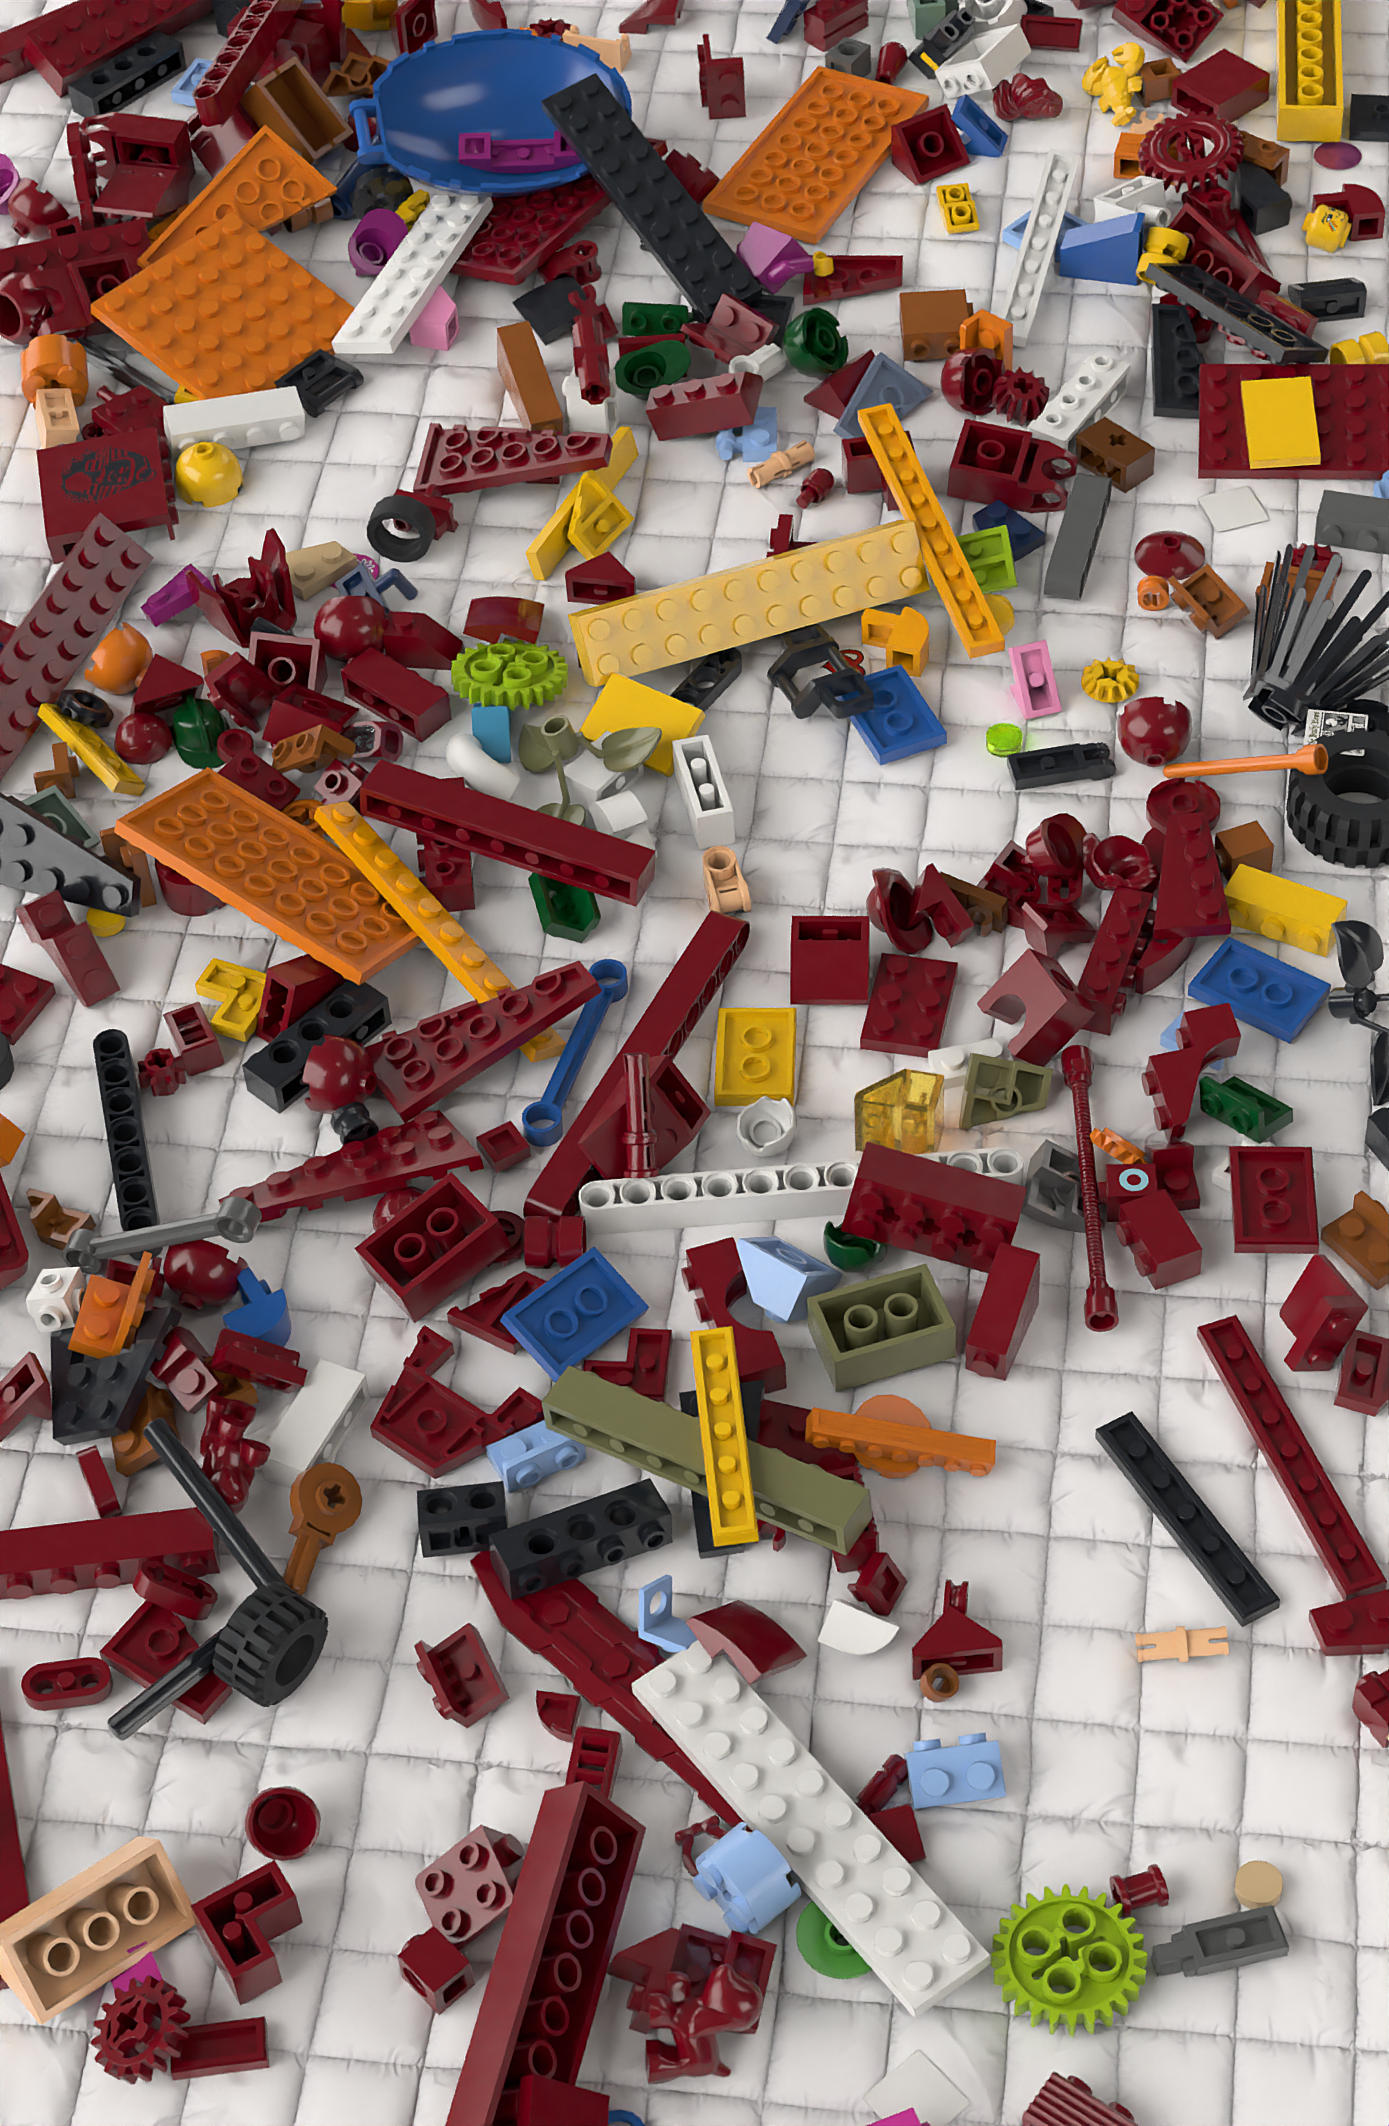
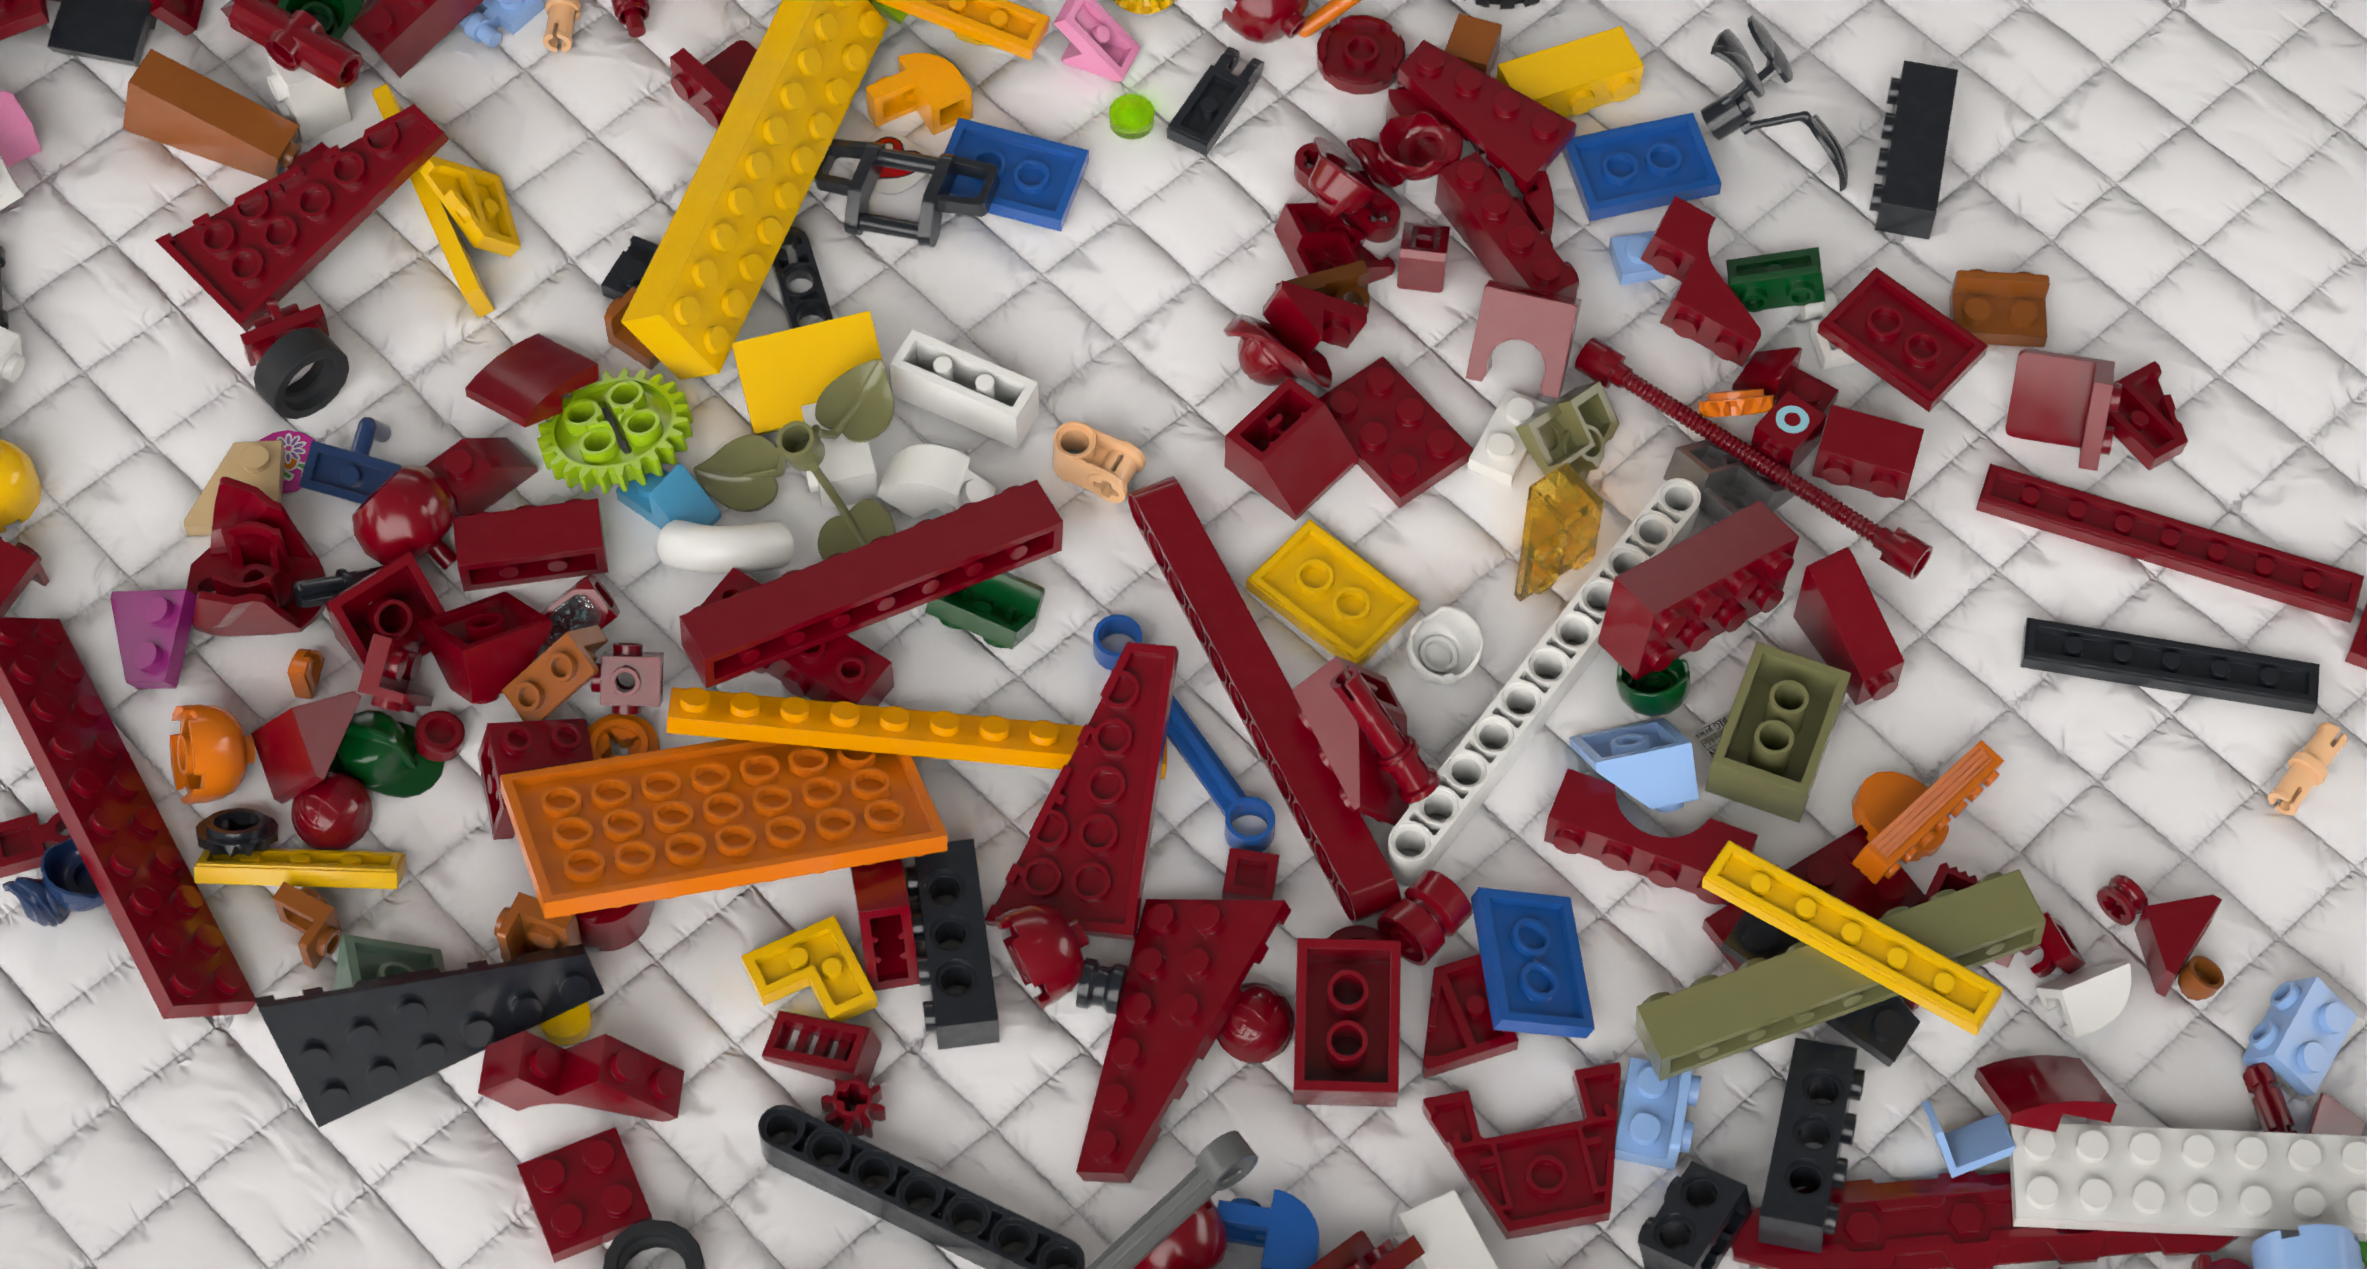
camera: 55 degrees left, 10 degrees up
(599, 581) = (571, 263): dark red slope -> none
(645, 1366) = (1637, 964): dark red tile -> none

